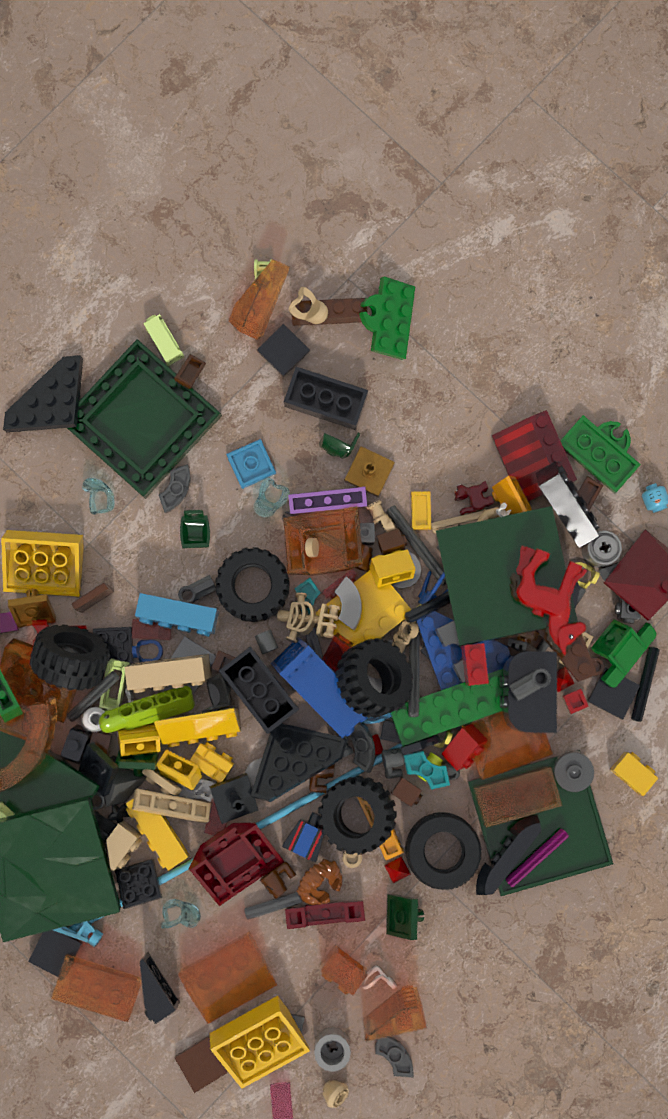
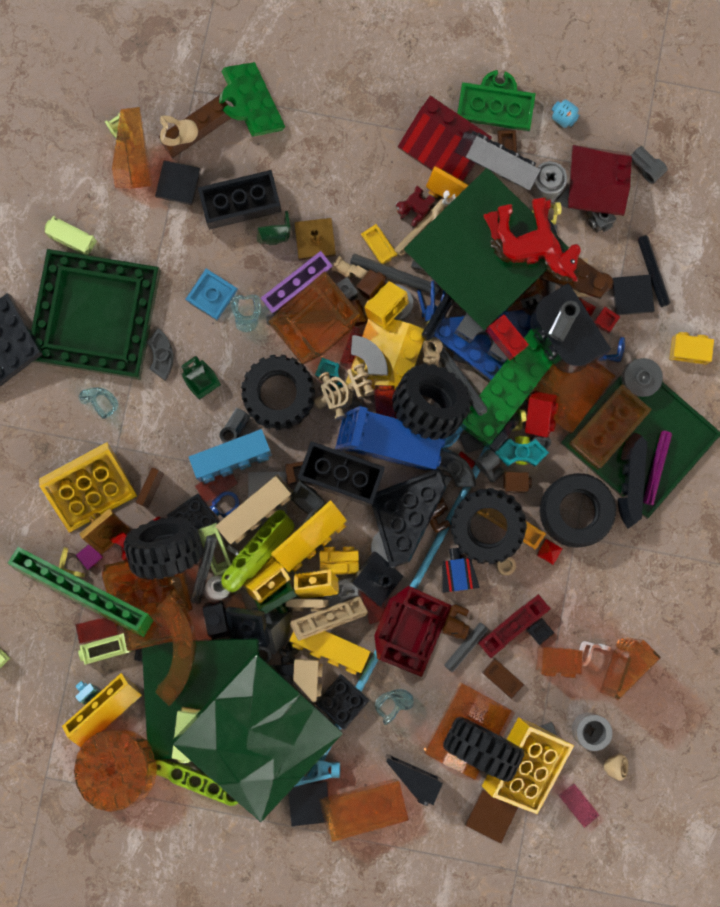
camera: 35 degrees left, 0 degrees up
(189, 371) = (110, 248): reddish brown tile -> none
(226, 1005) = (483, 749): none -> black tyre
(266, 642) = (321, 431): dark grey piece -> none
(287, 952) = (503, 678): none -> reddish brown tile
(312, 547) = (308, 330): tan tile -> none
(313, 879) = (486, 602): dark orange piece -> none
(345, 933) = (540, 631): none -> black tile
(396, 1055) = (646, 703): dark grey tile -> none
(403, 916) = (579, 585): dark green tile -> none
(573, 732) = (620, 351): none -> blue piece
(622, 649) = (617, 252): green plate -> none

